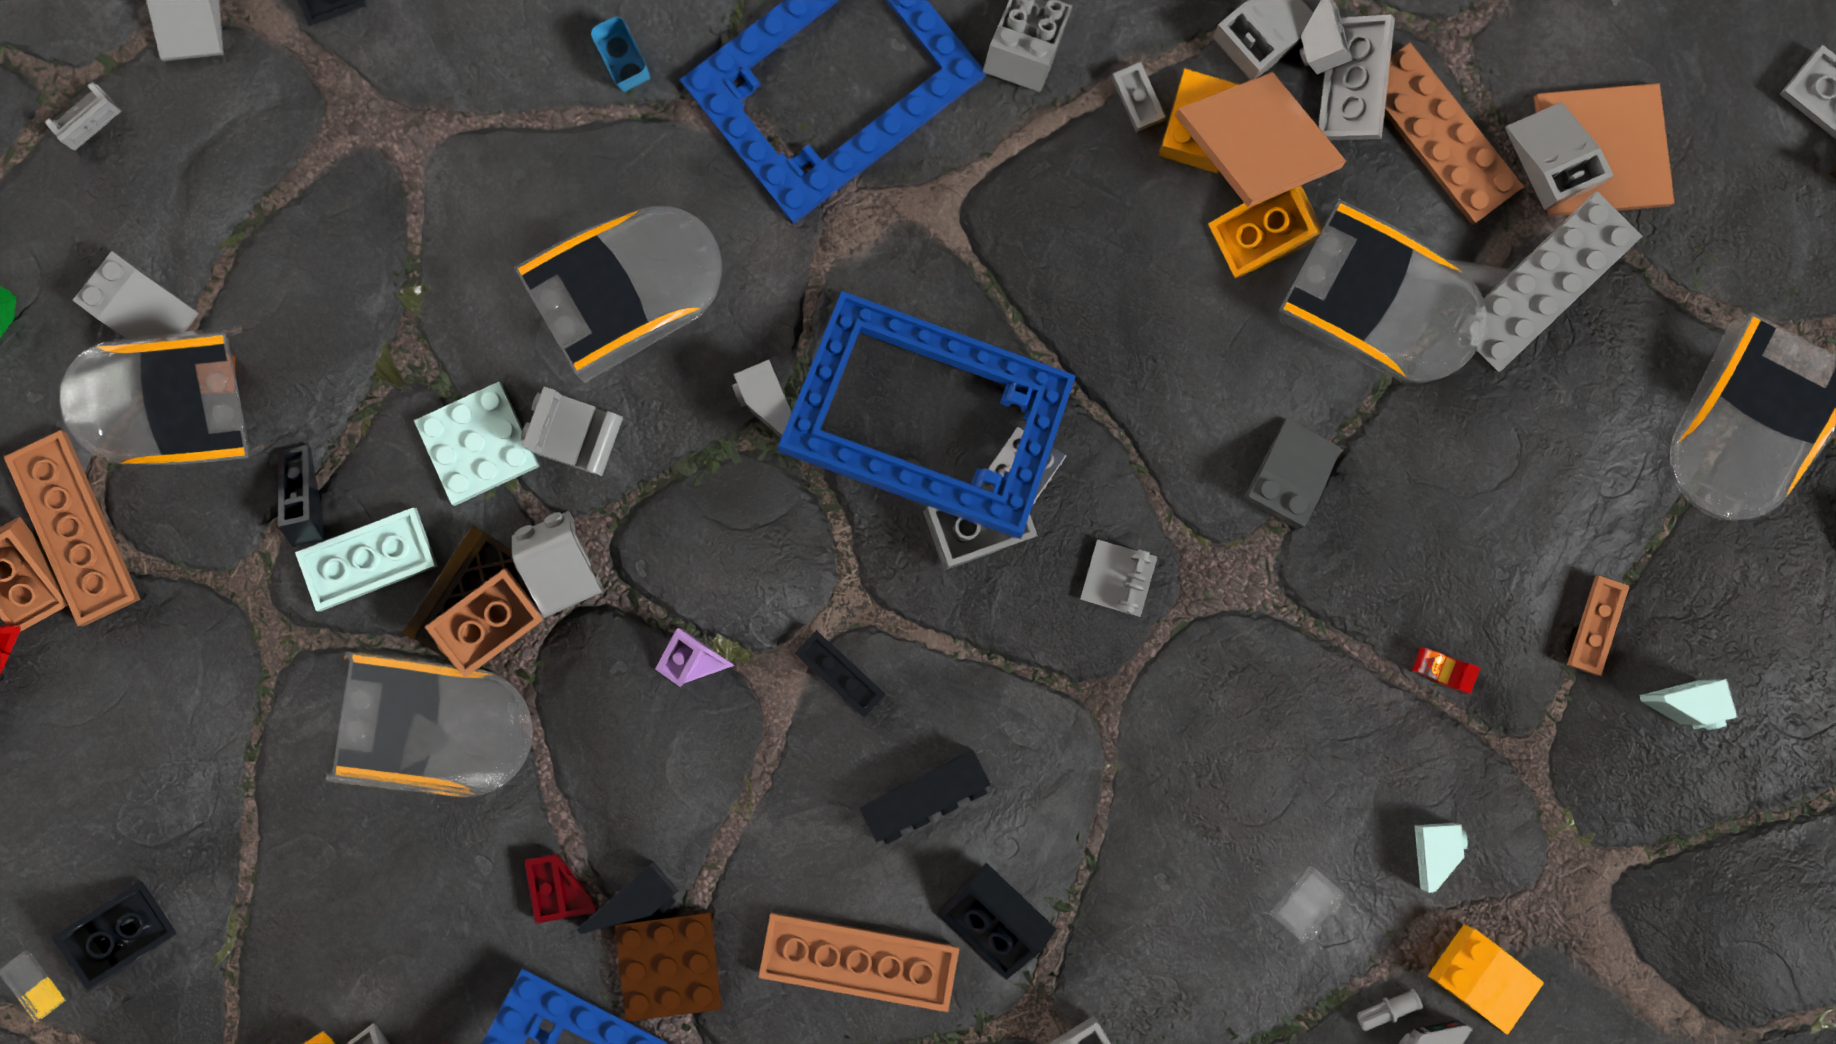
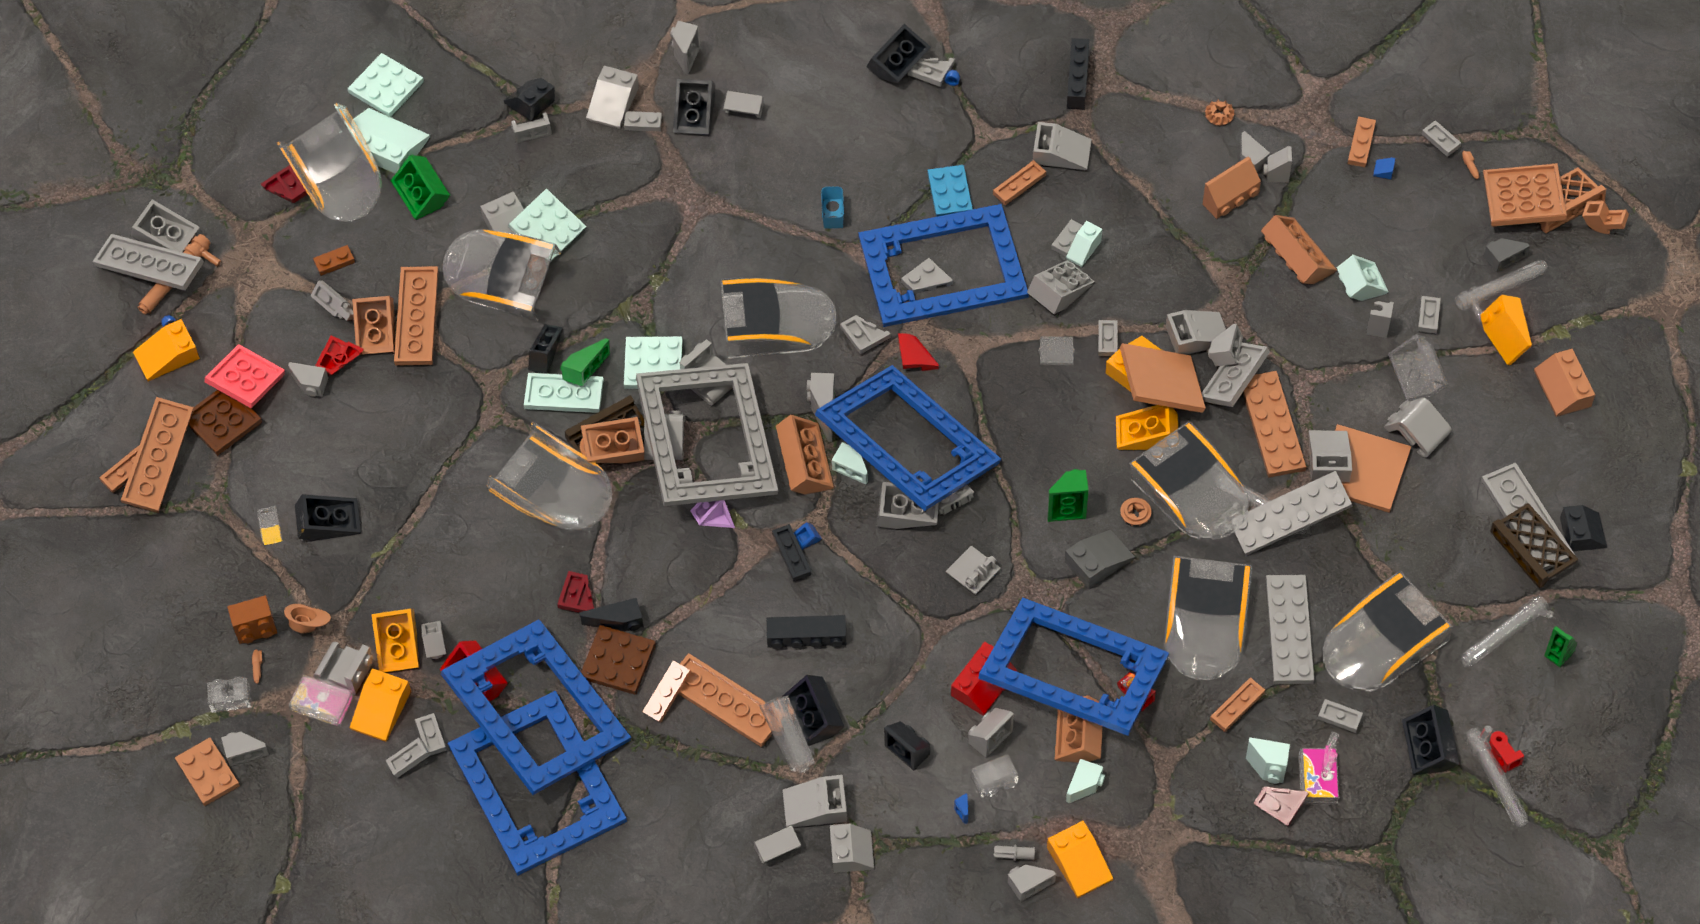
camera: 25 degrees right, 25 degrees down
(56, 64) = (532, 98): none -> black slope
(194, 282) = (549, 221): none -> light aqua plate
(252, 26) = (643, 121): none -> light grey plate
(373, 502) = (584, 363): none -> green slope
(642, 666) = (684, 491): none -> light grey plate
(769, 992) = (667, 691): none -> plate
(771, 253) = (863, 334): none -> light grey wing
(782, 503) = (804, 455): none -> nougat slope
(818, 111) = (926, 277): none -> light grey wing
(848, 631) = (807, 535): none -> blue slope
(853, 491) = (850, 463): none -> light aqua slope
(864, 252) = (914, 353): none -> red slope
(980, 984) = (788, 733): none -> clear slope
(1069, 150) = (1056, 350): none -> clear piece
(1161, 915) = (906, 744): none -> black slope
(1218, 754) = (973, 691): none -> red slope
(1220, 401) = (1068, 497): none -> green slope
(1271, 838) = (991, 731): none -> light grey slope
(1284, 975) = (961, 807): none -> blue slope
(1325, 374) = (1141, 506): none -> nougat gear
(1394, 775) = (1077, 738): none -> nougat slope
(1449, 625) = (1113, 715): none -> blue plate
(1493, 504) = (1206, 616): none -> clear windscreen
(1614, 466) = (1289, 629): none -> light grey plate
(1658, 42) = (1420, 424): none -> light grey piece
(1731, 758) = (1281, 803): none -> wing
(1749, 576) = (1340, 716): none -> light grey plate
(1761, 687) = (1311, 780): none -> piece
(1778, 671) = (1329, 757): none -> clear slope

